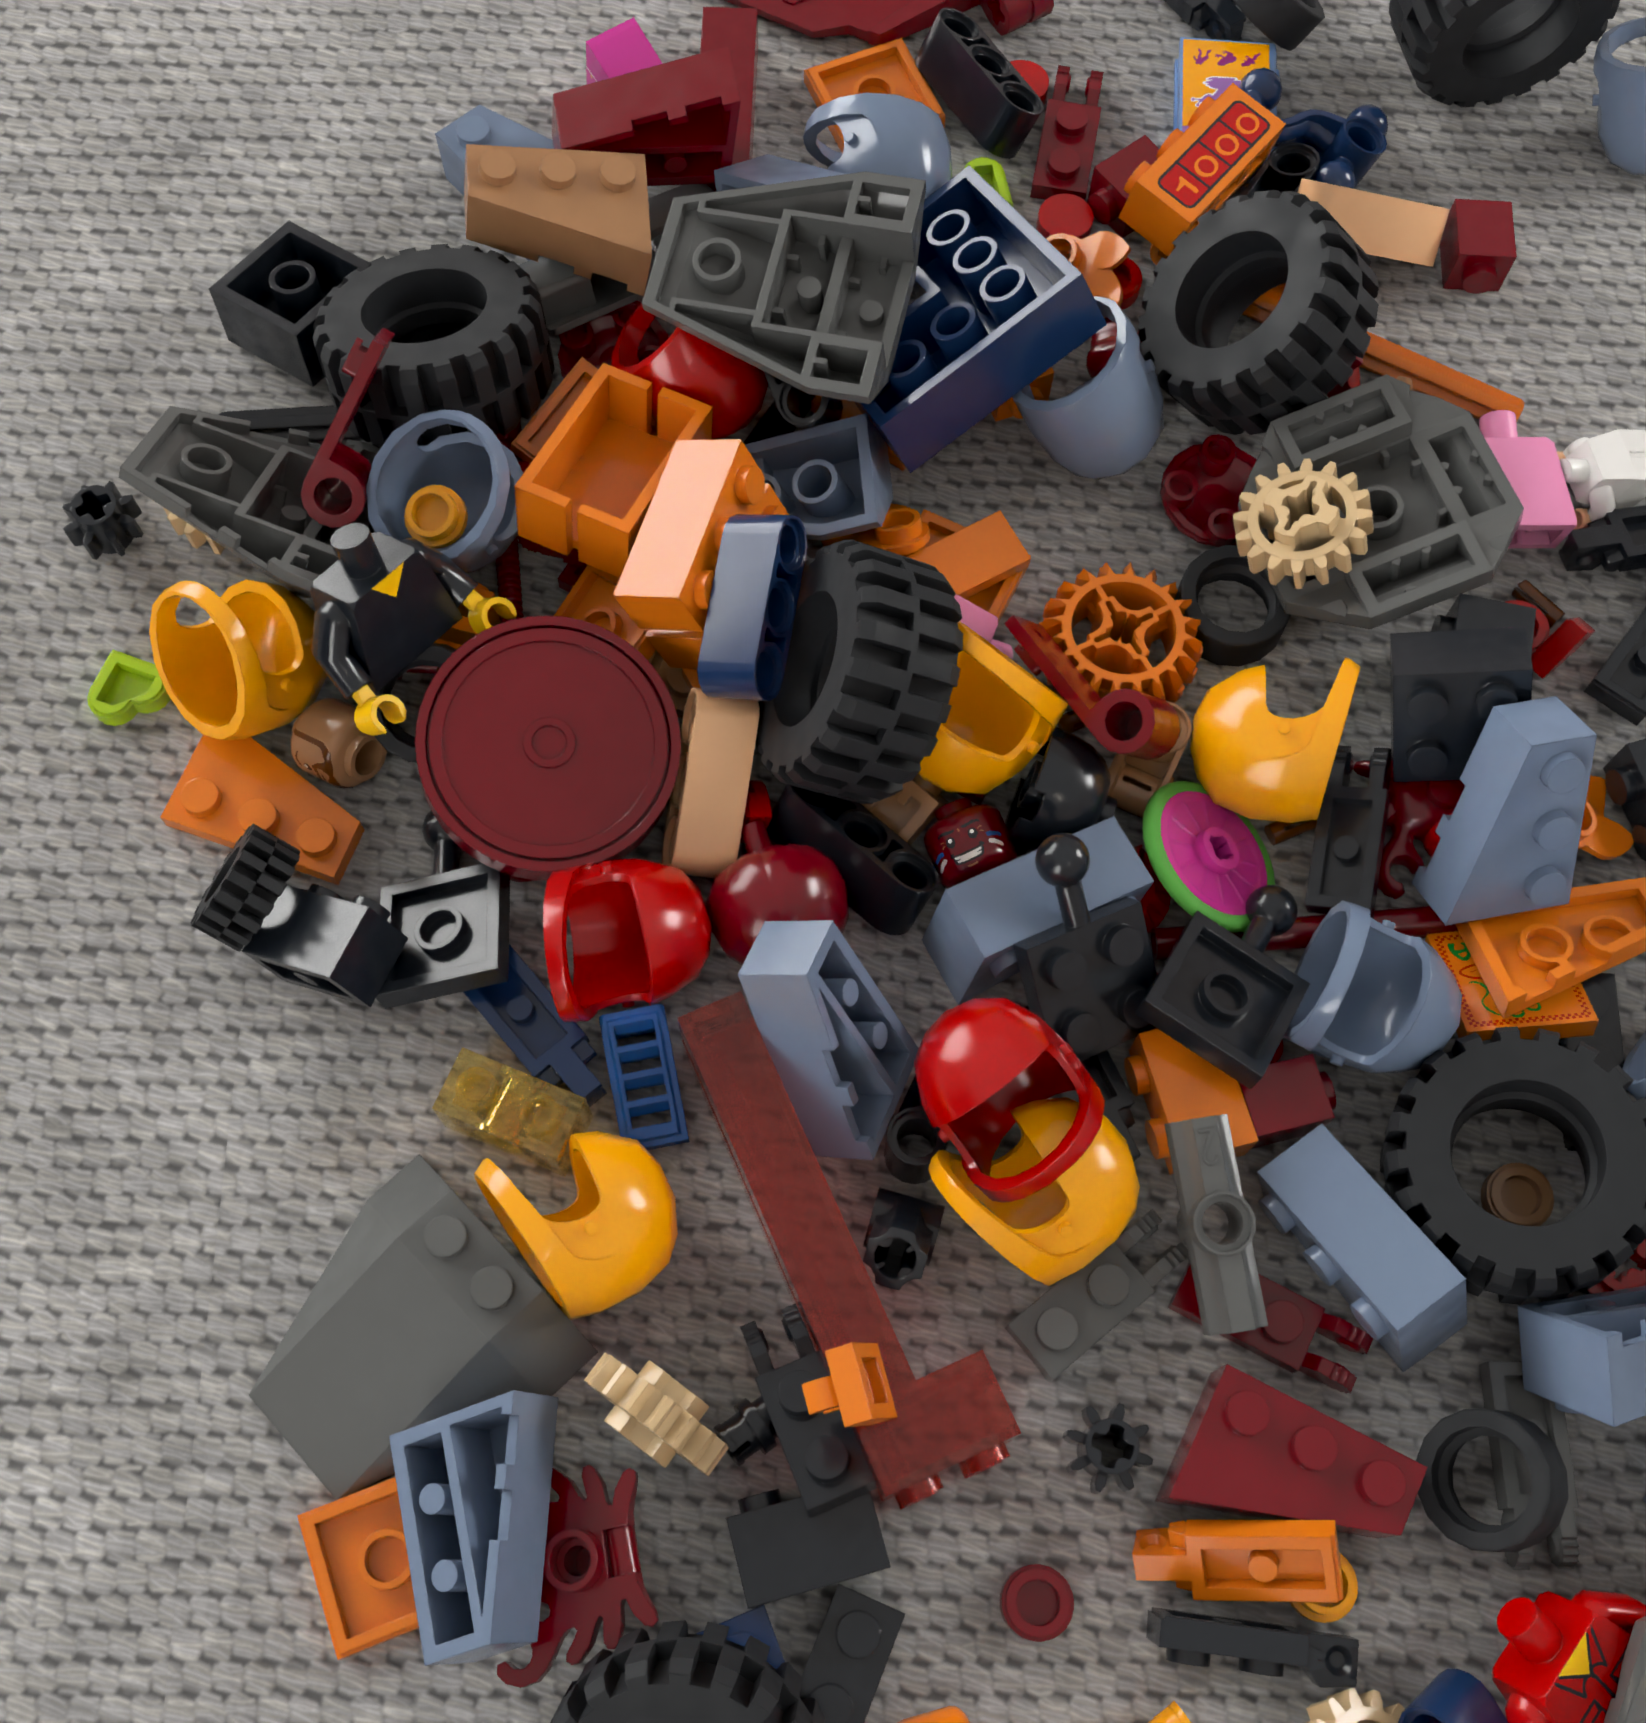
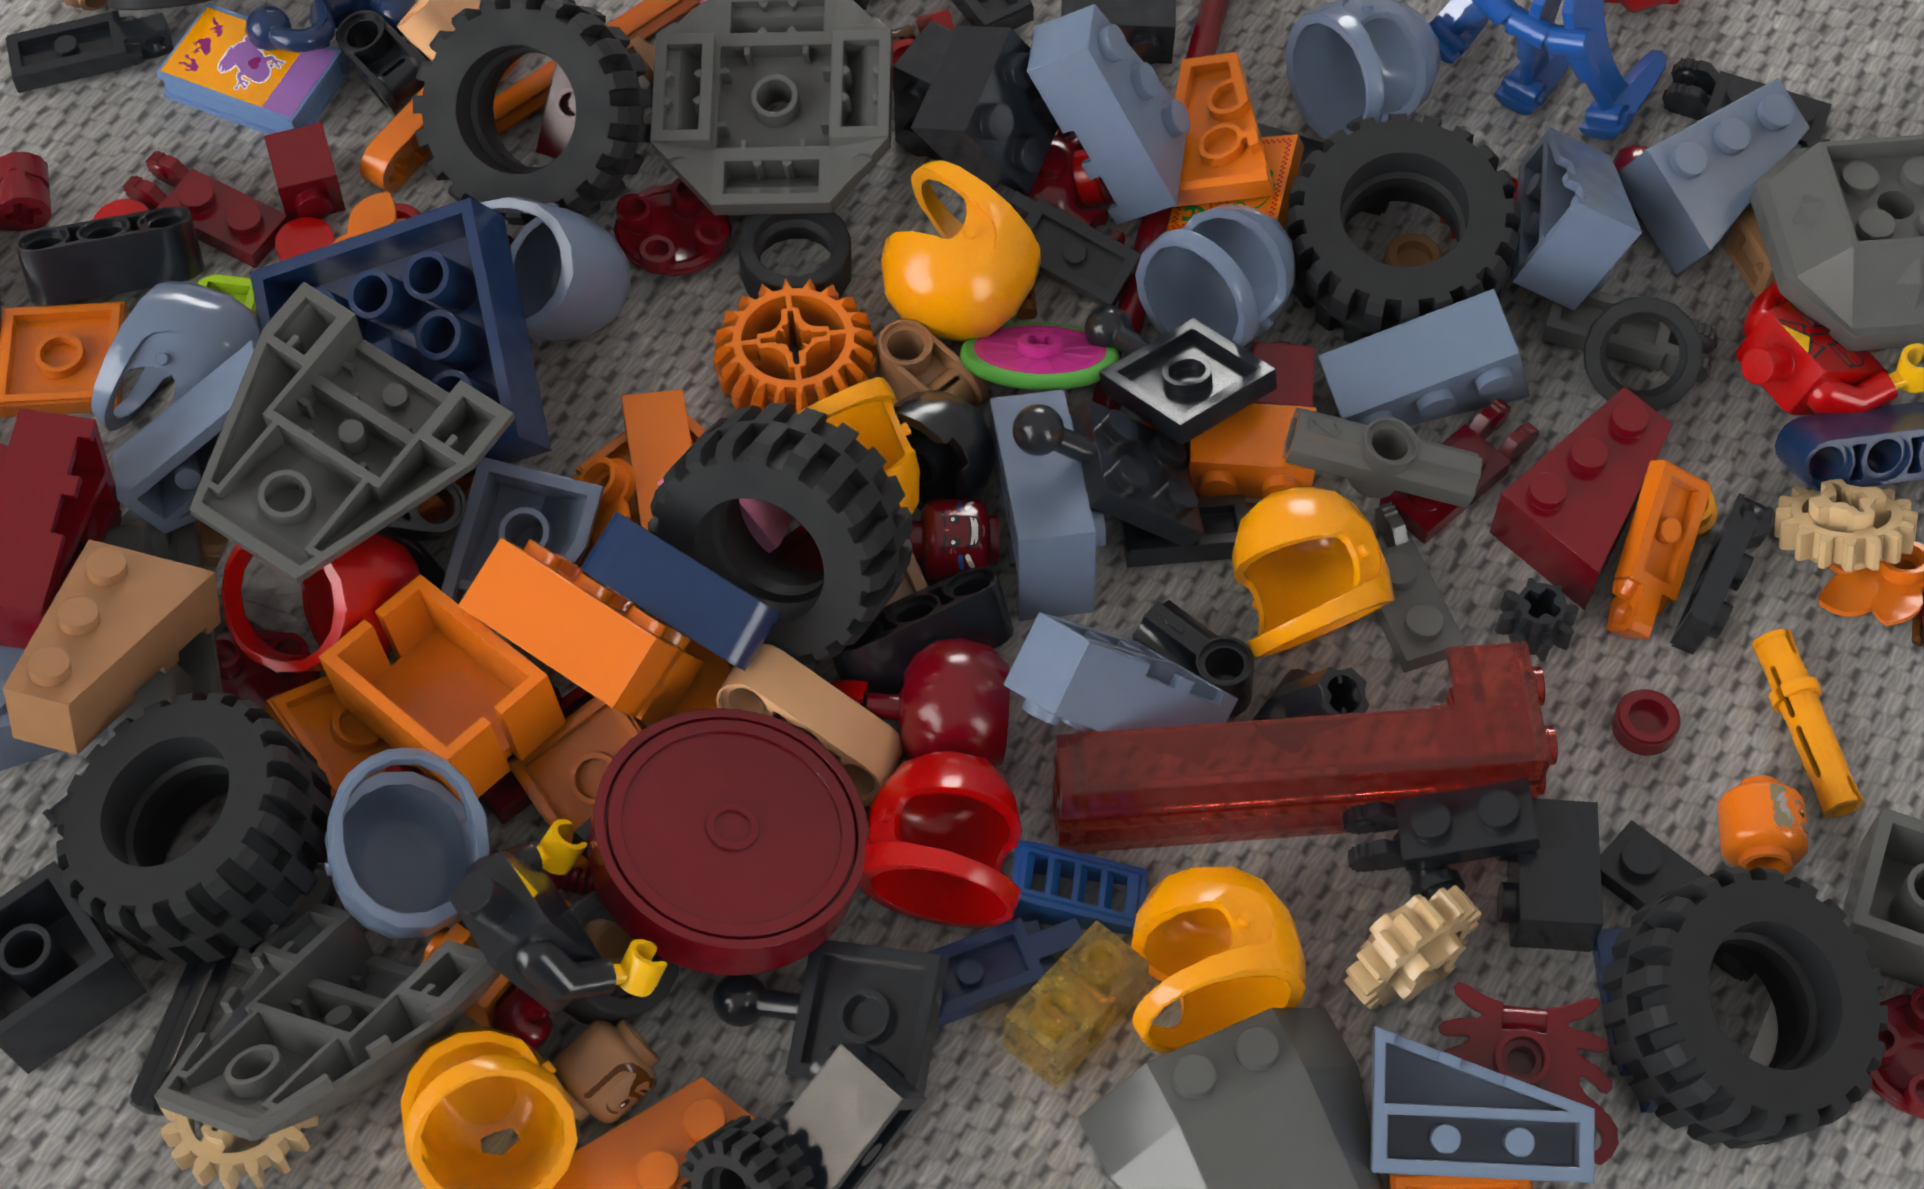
camera: 70 degrees left, 10 degrees down
(339, 475) = (317, 947): dark red door -> none
(436, 516) = (418, 868): light orange plate -> none
(855, 1386) = (1459, 740): orange tile -> none
(987, 1062) = (1196, 561): red piece -> none
(1121, 720) = (907, 351): dark red door -> none
(1199, 167) = (343, 100): orange brick -> none
(1303, 523) = (780, 125): tan gear -> none

